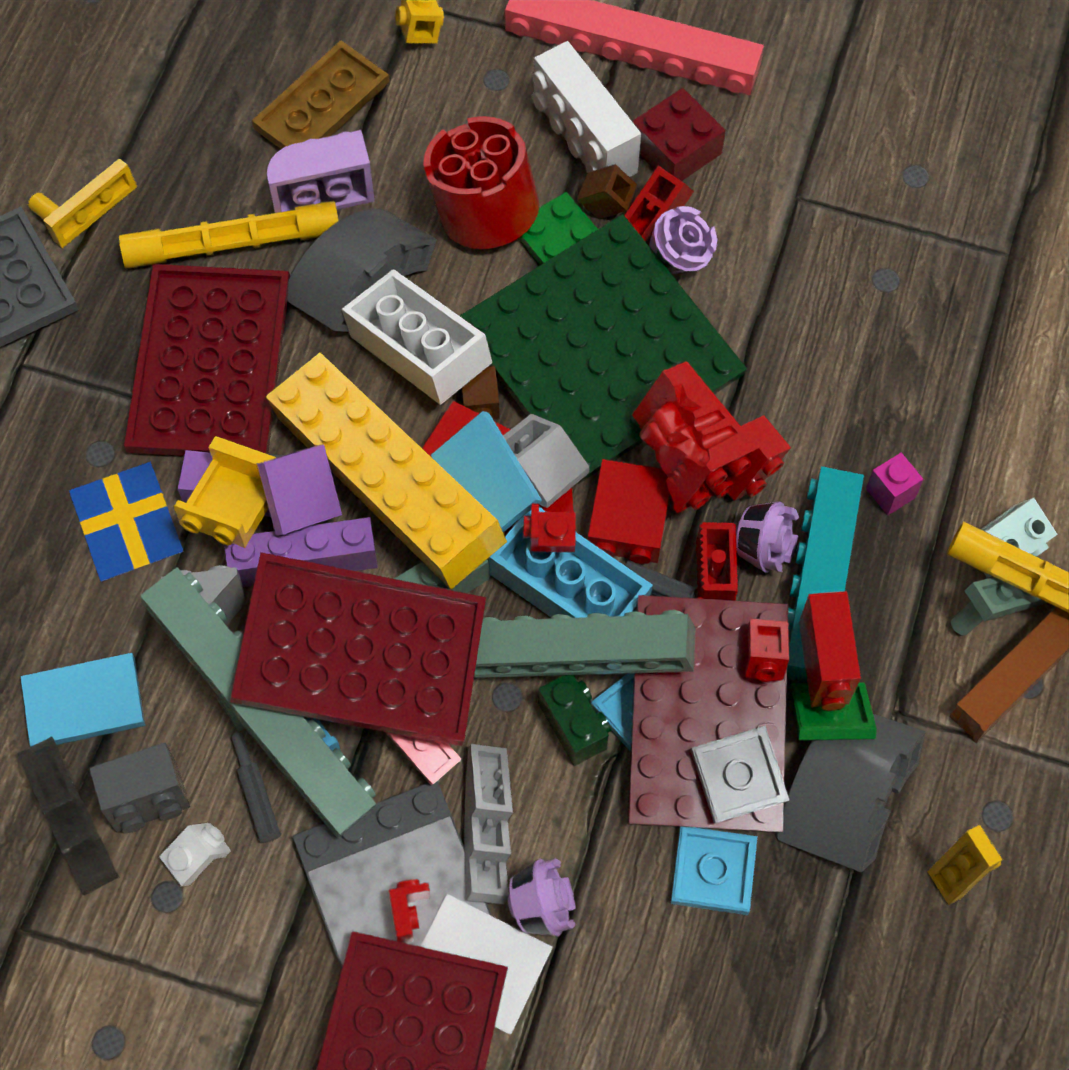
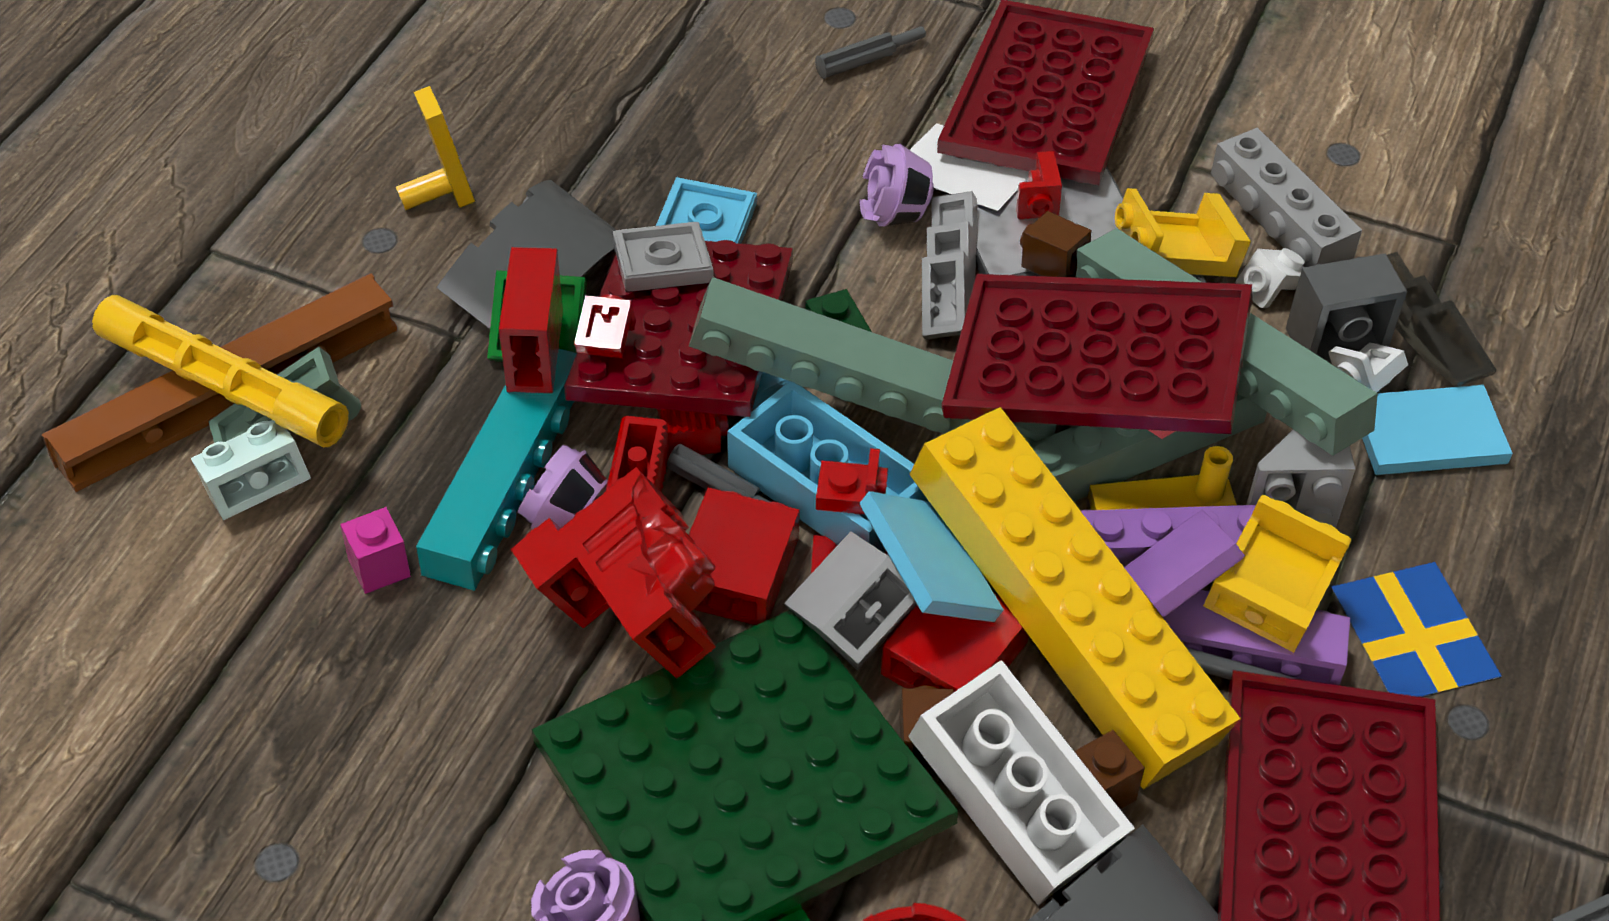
camera: 175 degrees left, 15 degrees down
(126, 739) = (1372, 365): none -> white bracket
(177, 943) = (1284, 199): none -> light grey brick
(279, 869) = (1196, 243): none -> yellow panel
(360, 364) = (1113, 767): none -> reddish brown brick
(395, 828) = (1052, 246): none -> reddish brown brick

